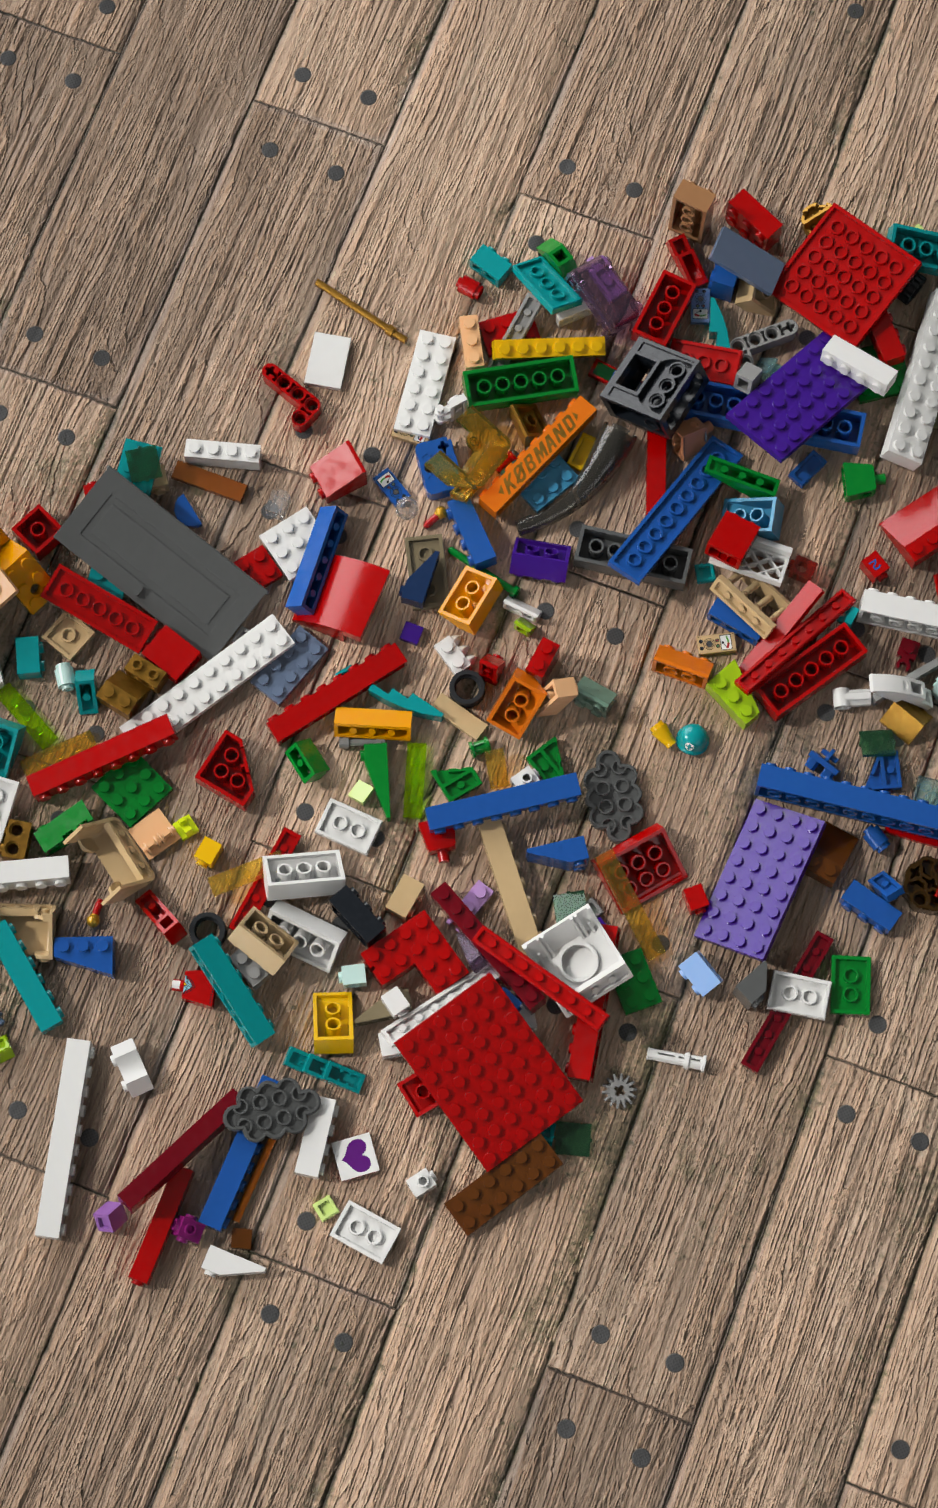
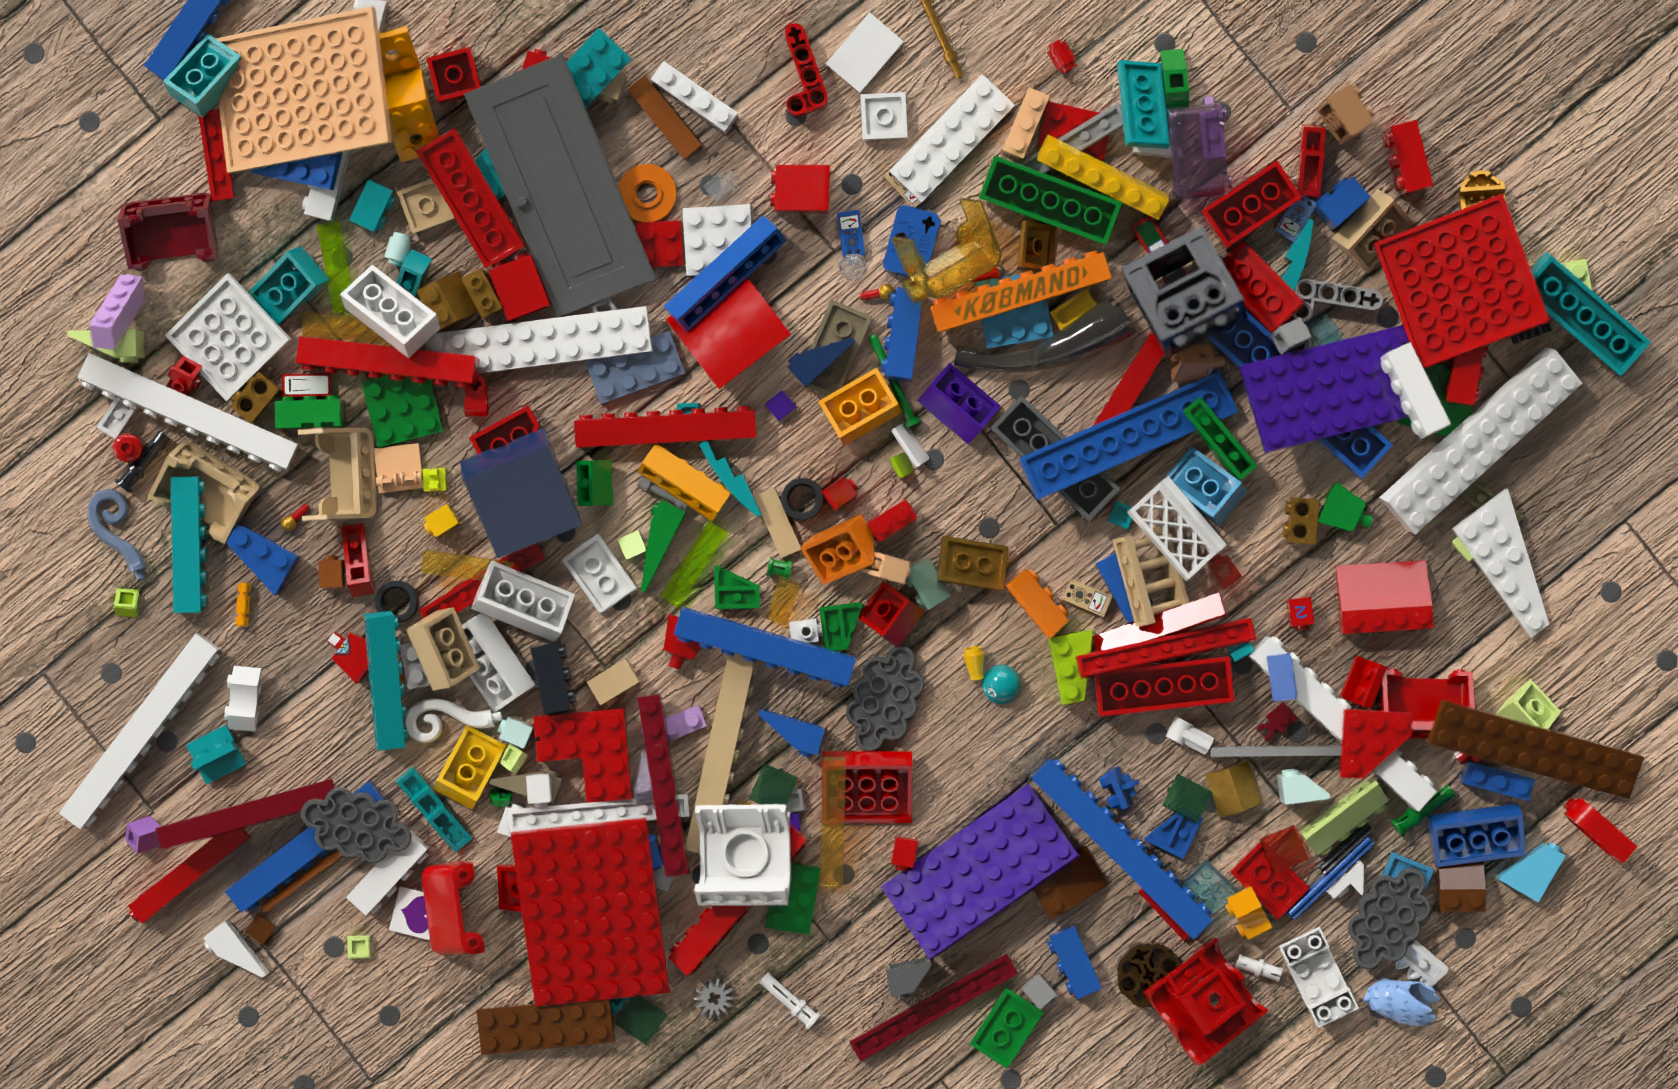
camera: 30 degrees right, 15 degrees up
(48, 811) = (305, 385): none -> white slope
(84, 718) = (390, 311): none -> white brick
(91, 999) = (243, 604): none -> light orange axle
(133, 1123) = (215, 754): none -> teal bracket
(143, 464) = (601, 67): clear green piece -> none
(146, 937) = (331, 572): none -> dark orange brick
(184, 751) = (476, 401): none -> red piece
(185, 513) = (620, 138): blue tile -> none
(187, 1229) = (211, 892): magenta brick -> none
(237, 529) = (665, 192): none -> orange piece
(257, 792) = (520, 493): none -> dark blue tile
(318, 984) = (477, 719): none -> white plant
(362, 996) = (513, 758): none -> yellowish green plate
(365, 1232) = (384, 993): white plate -> none
(367, 395) = (884, 116): none -> white plate
(369, 1031) = (500, 797): none -> green tile
(377, 1136) = (443, 908): none -> red windscreen
(422, 1183) = (466, 977): white brick -> none
(453, 409) = (965, 187): white plate -> none
(454, 655) = (810, 453): white plate -> none
(491, 265) = (1099, 44): teal brick -> none
(540, 978) = (693, 854): red tile -> none
(581, 733) = (890, 614): none -> red slope
(619, 663) = (972, 563): none -> pearl gold plate
(700, 974) = (862, 931): light blue brick -> none
(732, 539) = (1166, 504): red brick -> none
(746, 261) = (1368, 205): sand blue tile -> none
(799, 995) = (947, 1009): white tile -> none
(807, 469) = (1297, 463): blue tile -> none
(840, 503) = (1308, 521): none -> pearl gold brick
(858, 944) = (1039, 991): none -> light grey brick
(876, 838) = (1124, 895): blue brick -> none
(886, 887) = (1102, 951): blue slope -> none
(892, 609) = (1281, 677): none -> slope
(901, 688) = (1242, 762): white slope -> none

